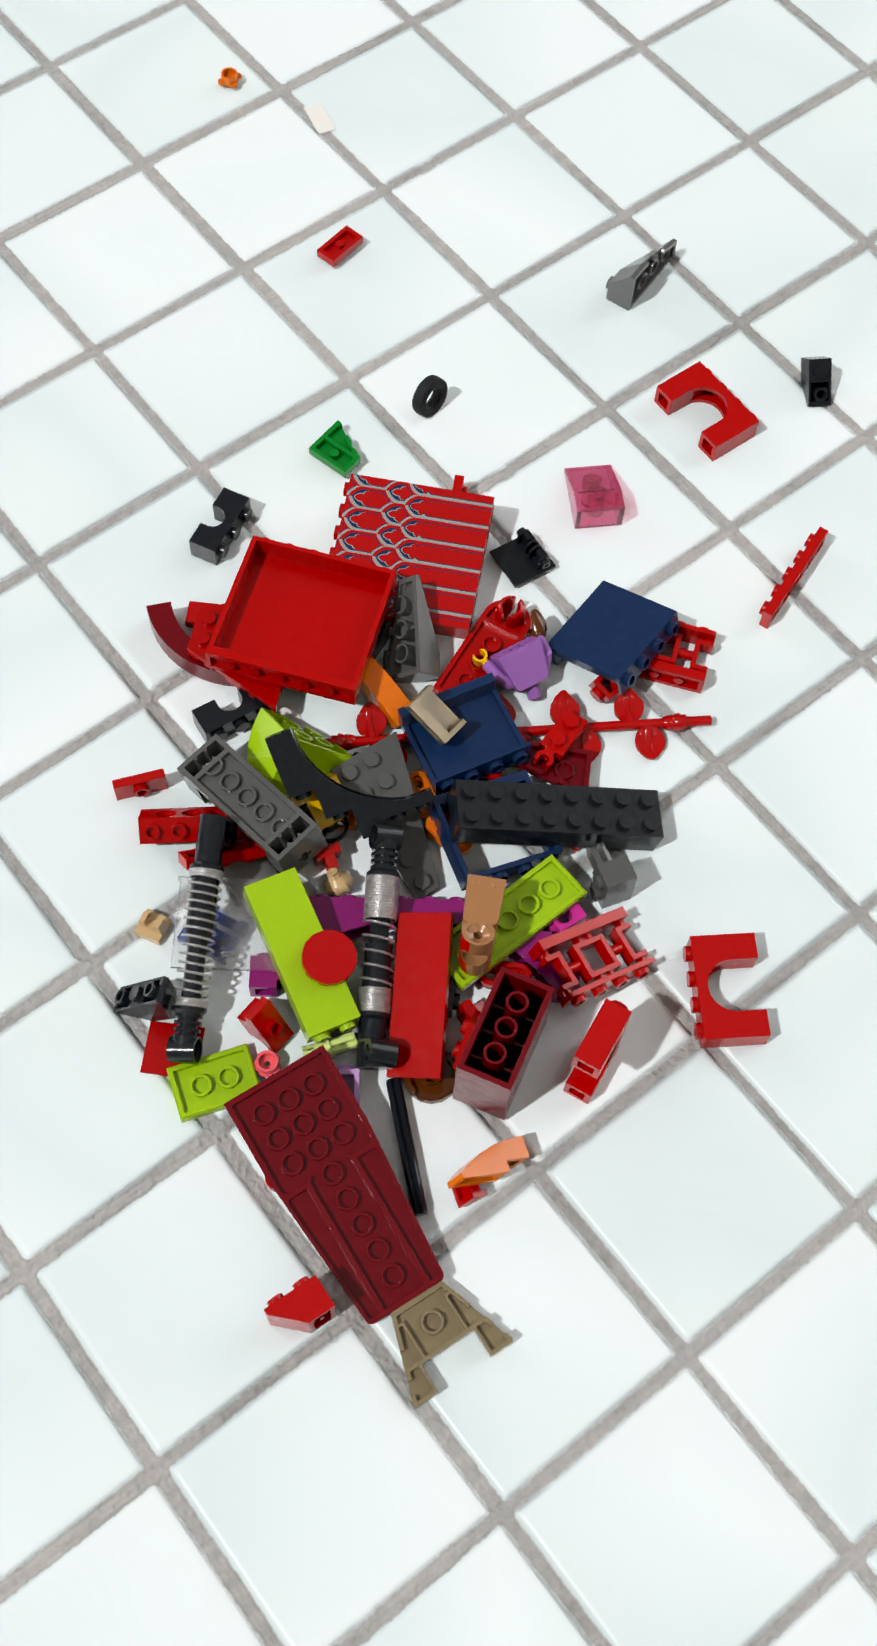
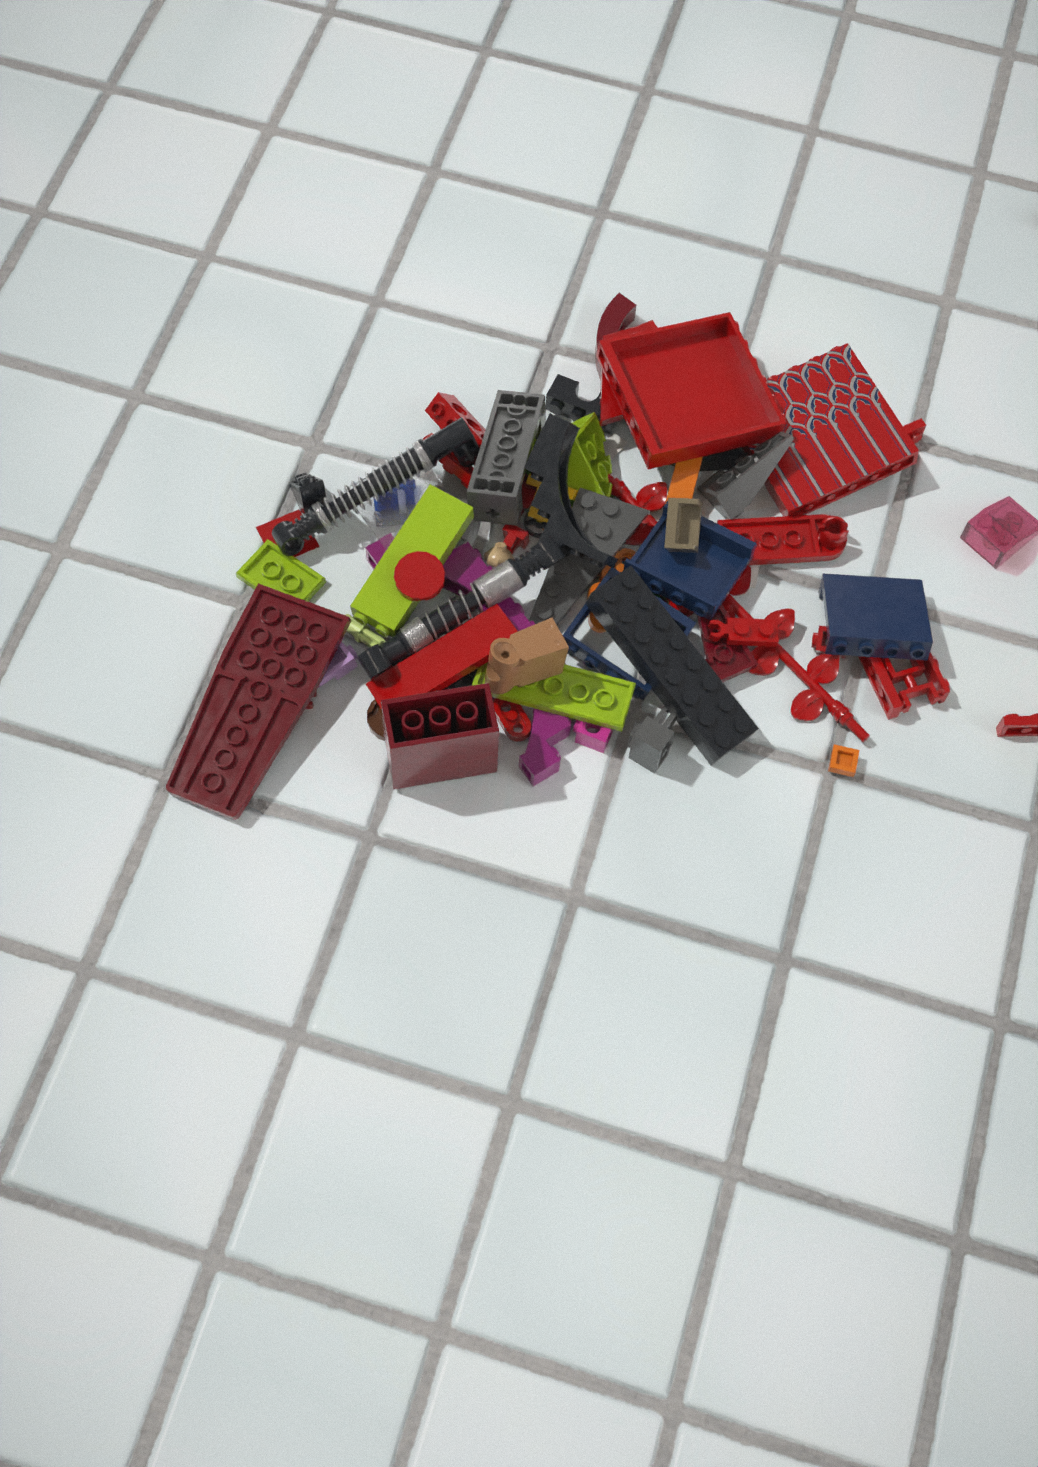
camera: 55 degrees right, 0 degrees up
(140, 784) = (474, 383): red plate -> none
(153, 926) = (369, 460): tan tile -> none
(213, 542) = (752, 299): black arch -> none
(265, 1024) = (345, 578): red brick -> none
(267, 1056) = (321, 595): coral plate -> none
(303, 1308) = (147, 732): red slope -> none
(336, 450) = (872, 330): green wing -> none
(406, 1146) = (322, 733): black axle -> none
(422, 392) = (977, 347): black tyre -> none
(432, 1325) = (192, 833): dark tan wing -> none
(468, 1194) = (315, 794): red tile -> none
(491, 1163) = (343, 792): orange slope -> none
(522, 558) = (894, 515): black hinge -> none
(523, 663) = (794, 567): medium lavender torso -> none
(586, 936) = (579, 747): red fence -> none
(597, 1050) = (486, 806): red arch -> none
(716, 1024) = (641, 856): red arch -> none
(719, 749) = (843, 760): none -> orange plate

